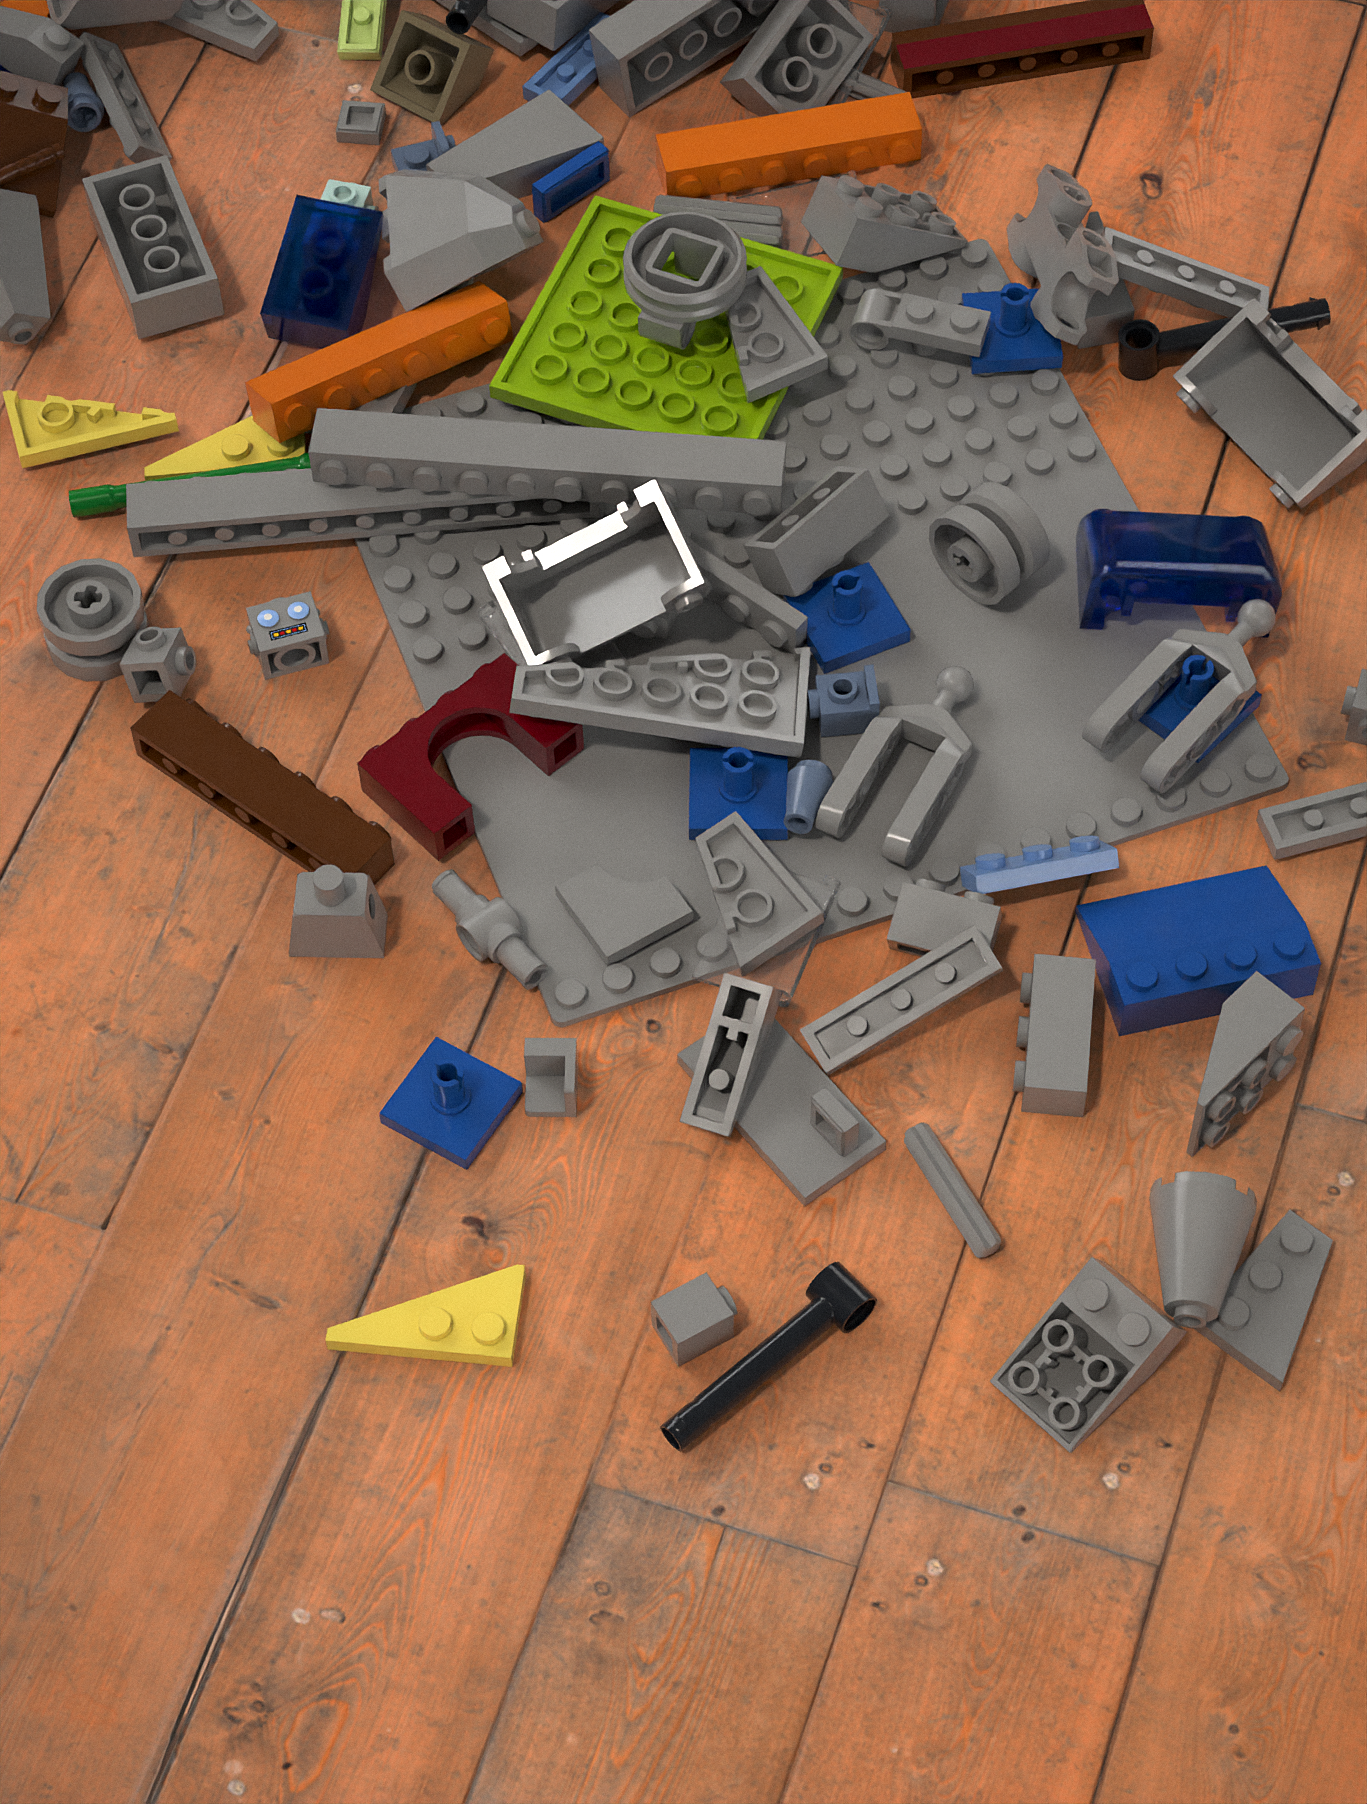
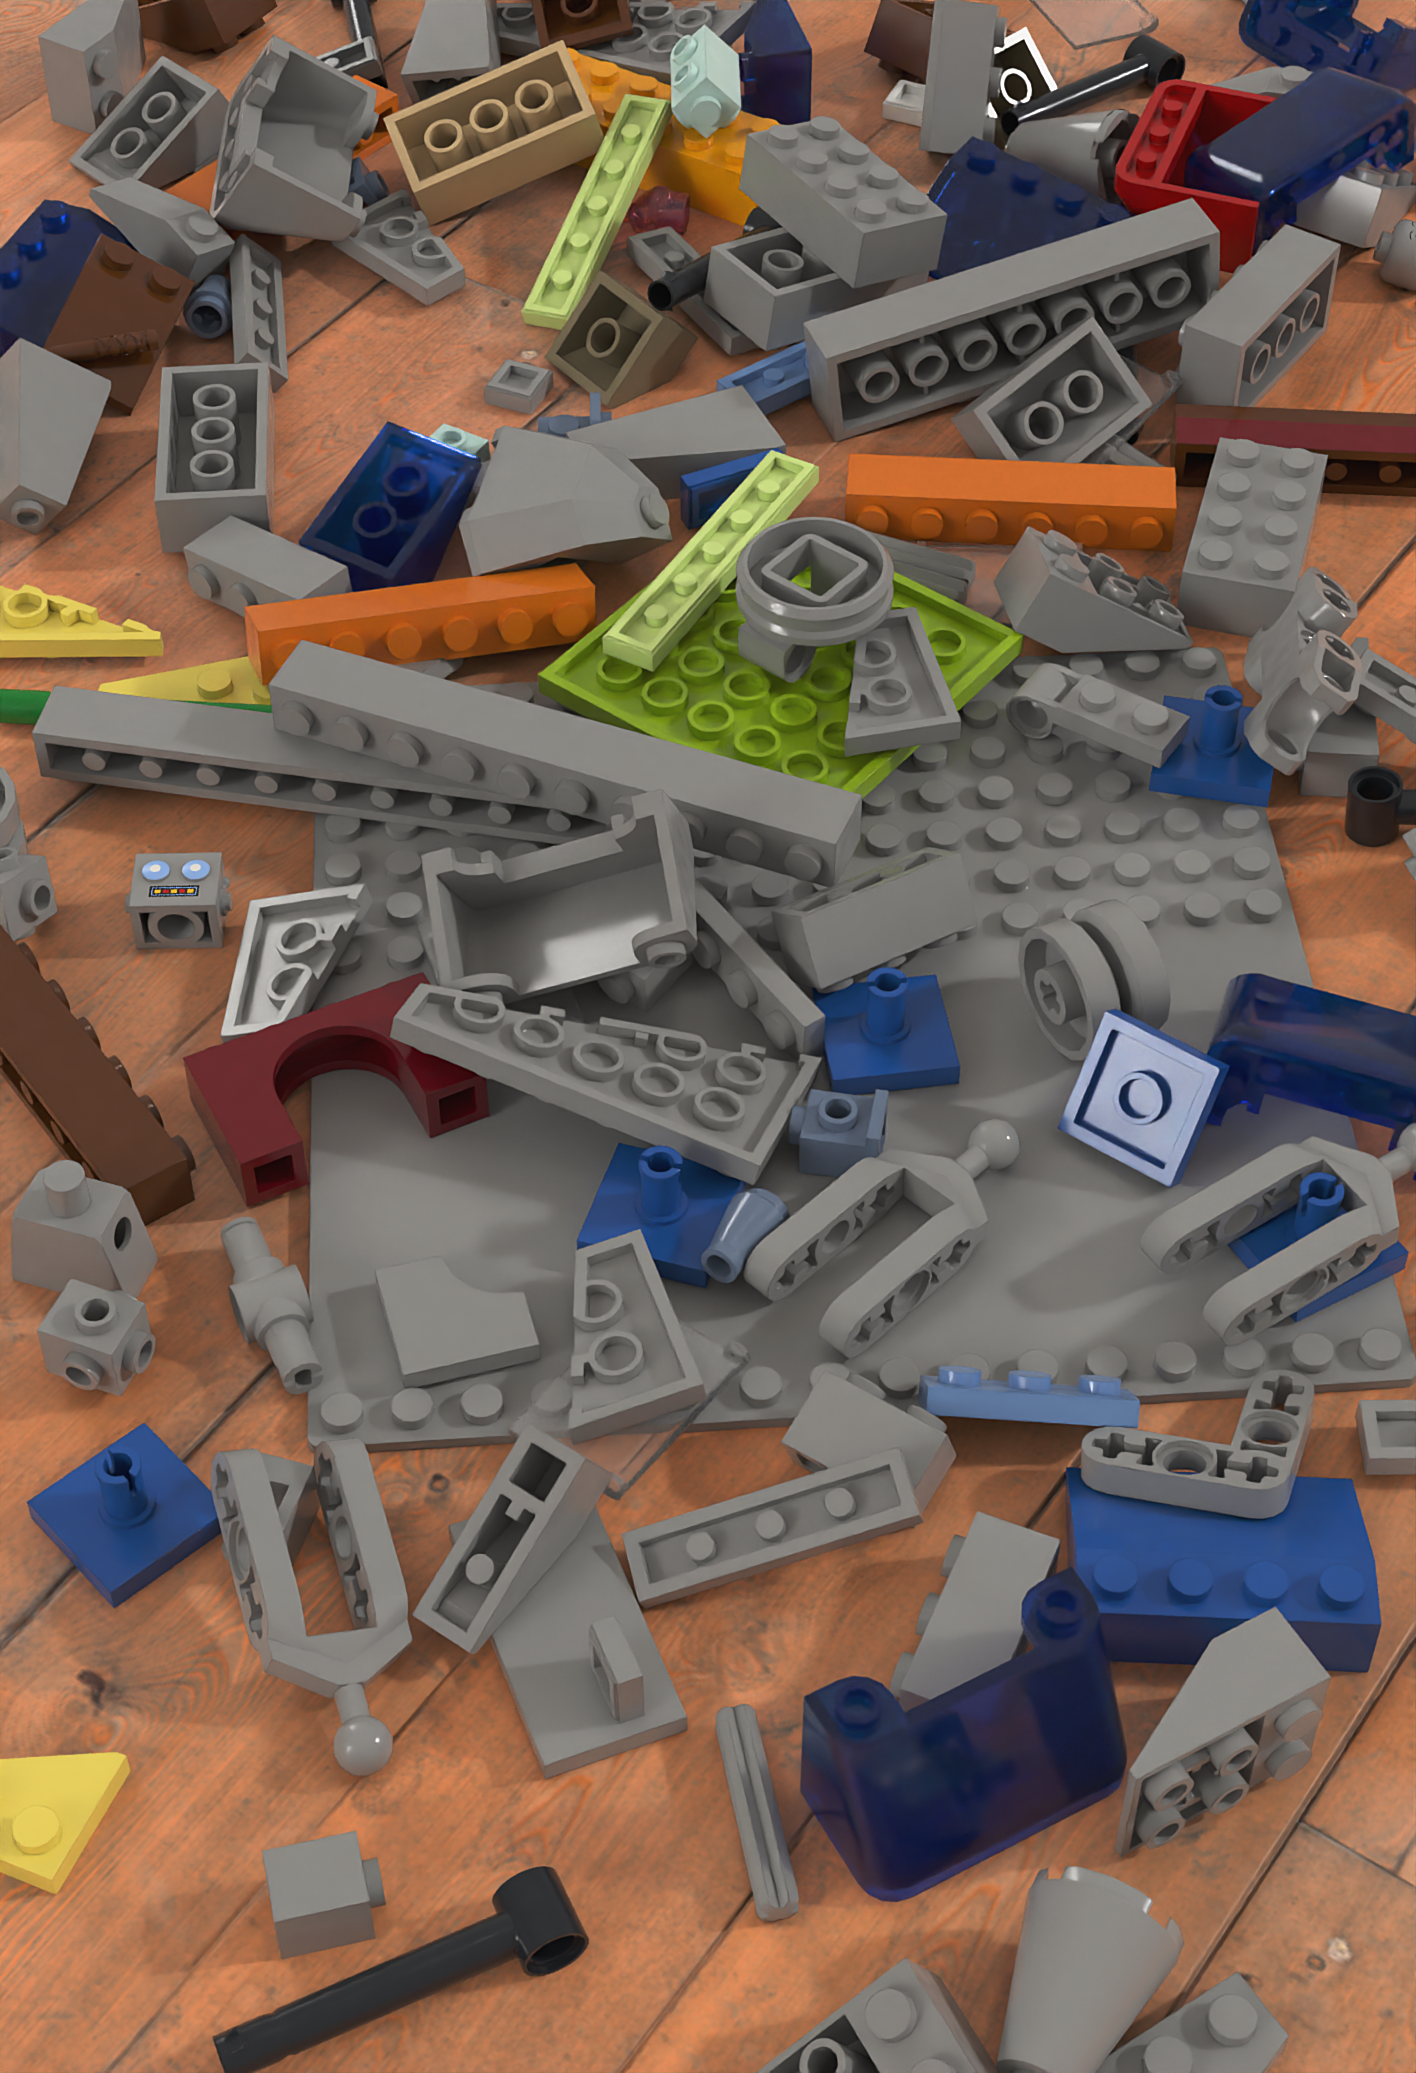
camera: 15 degrees right, 10 degrees down
(234, 342) = (249, 566): none -> light grey brick
(381, 985) = (96, 1337): none -> light grey brick
(390, 663) = (289, 955): none -> light grey wing
(585, 1132) = (270, 1602): none -> light grey piece
(586, 256) = (708, 561): none -> yellowish green tile
(983, 139) = (1250, 536): none -> light grey brick
(1051, 625) = (1143, 1097): none -> tile
(1066, 1149) = (974, 1767): none -> clear blue windscreen
(1111, 890) = (1232, 1479): none -> light grey beam

